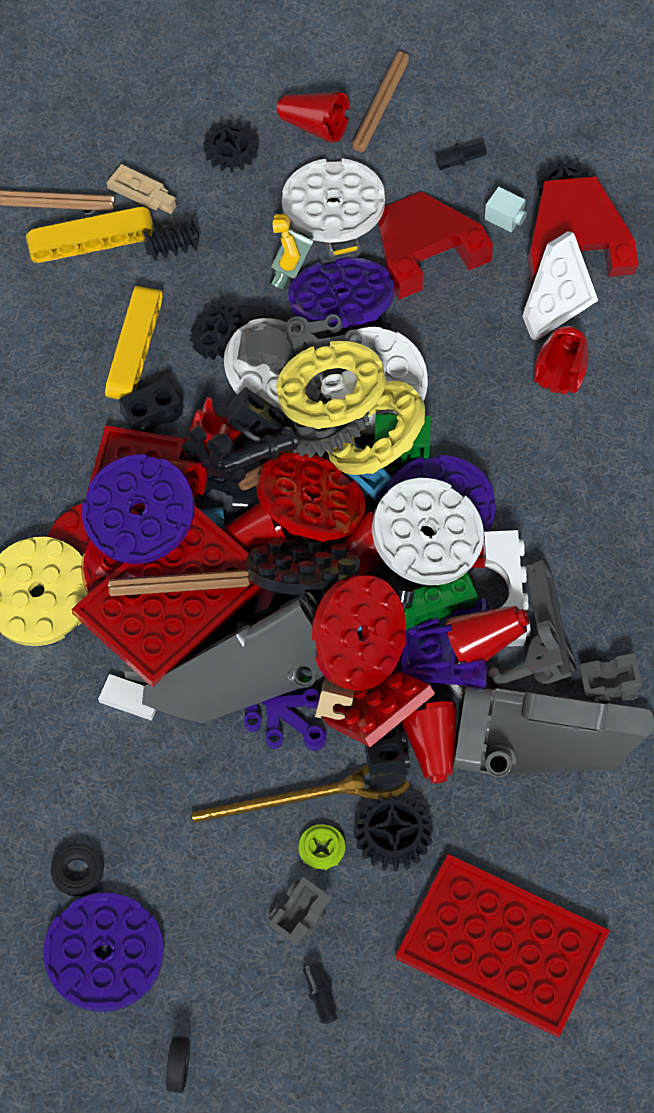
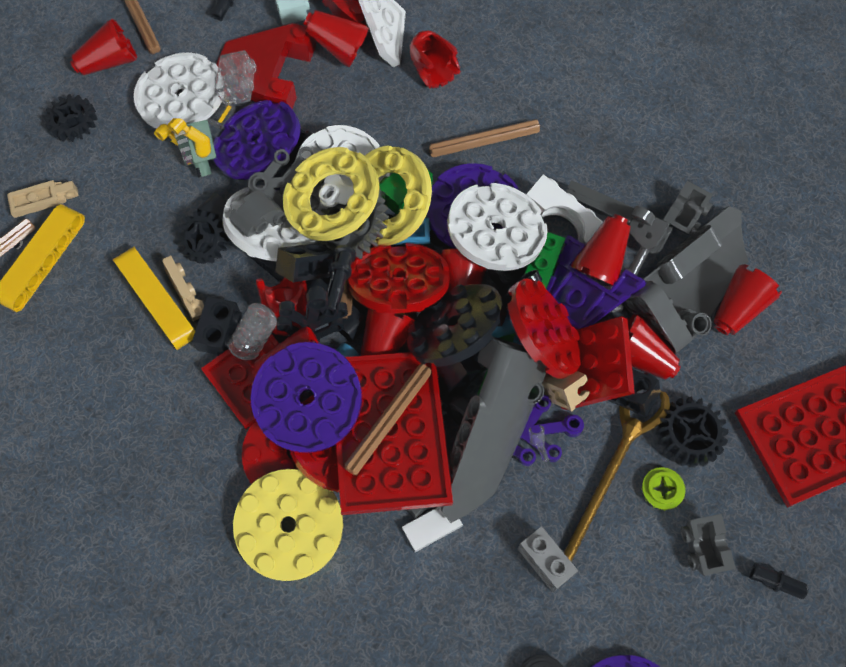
camera: 50 degrees left, 5 degrees up
(160, 357) = (184, 290): none -> tan hinge
(162, 431) = (252, 332): none -> clear piece
(171, 239) = (100, 208): black piece -> none
(176, 798) = (547, 559): none -> light grey brick
(273, 717) = (538, 440): none -> clear hand
(381, 228) = (235, 78): none -> clear brick
(501, 267) = (336, 35): none -> red cone
(528, 465) = (484, 138): none -> medium nougat axle
(559, 786) = (745, 299): none -> red cone

